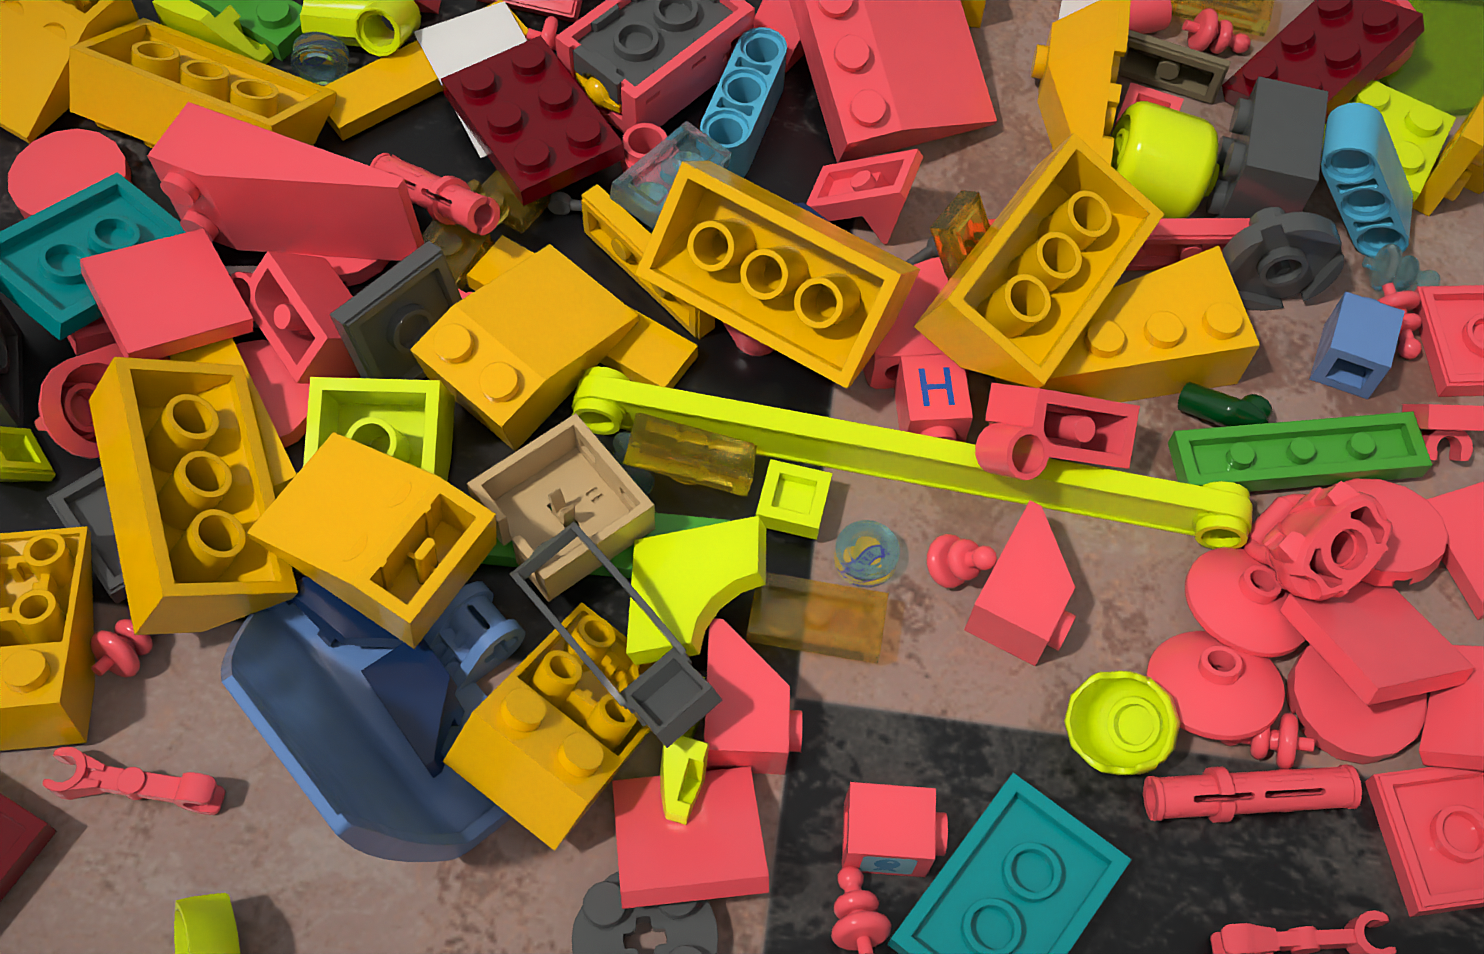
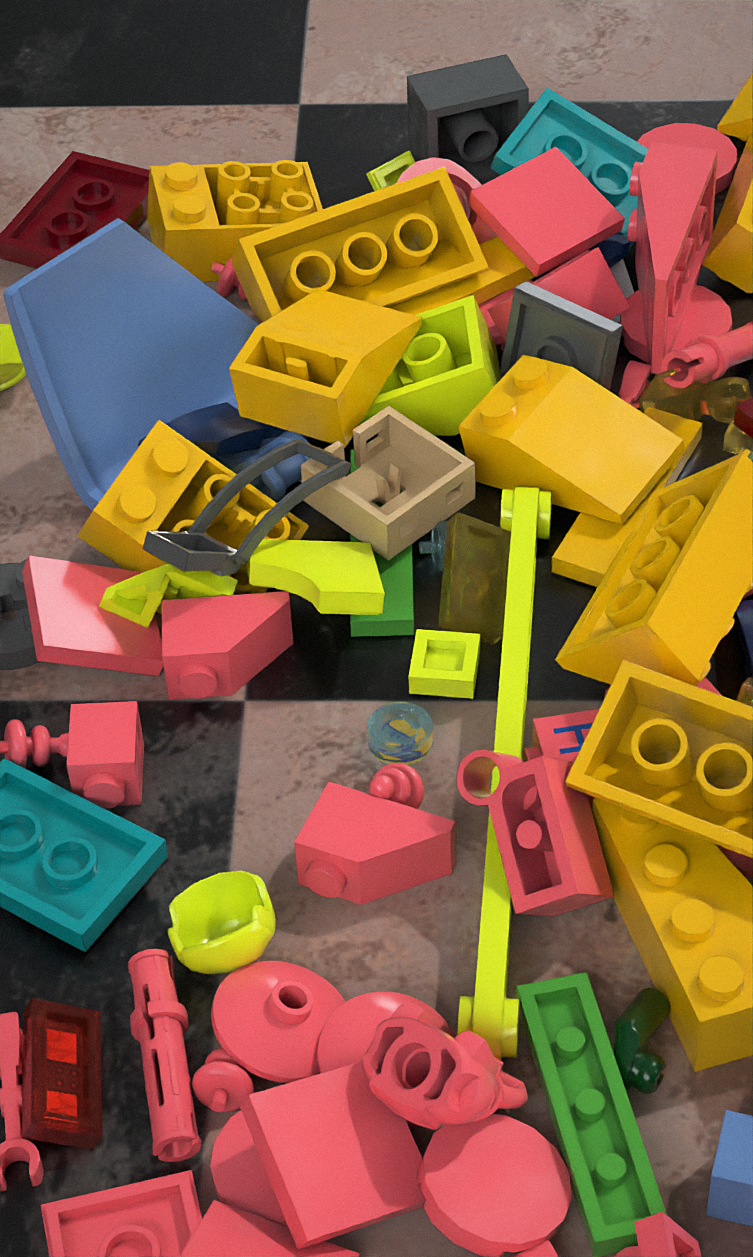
camera: 90 degrees right, 15 degrees down
(818, 617) = (318, 693): clear yellow plate -> none
(1279, 888) = (61, 1074): none -> clear red tile

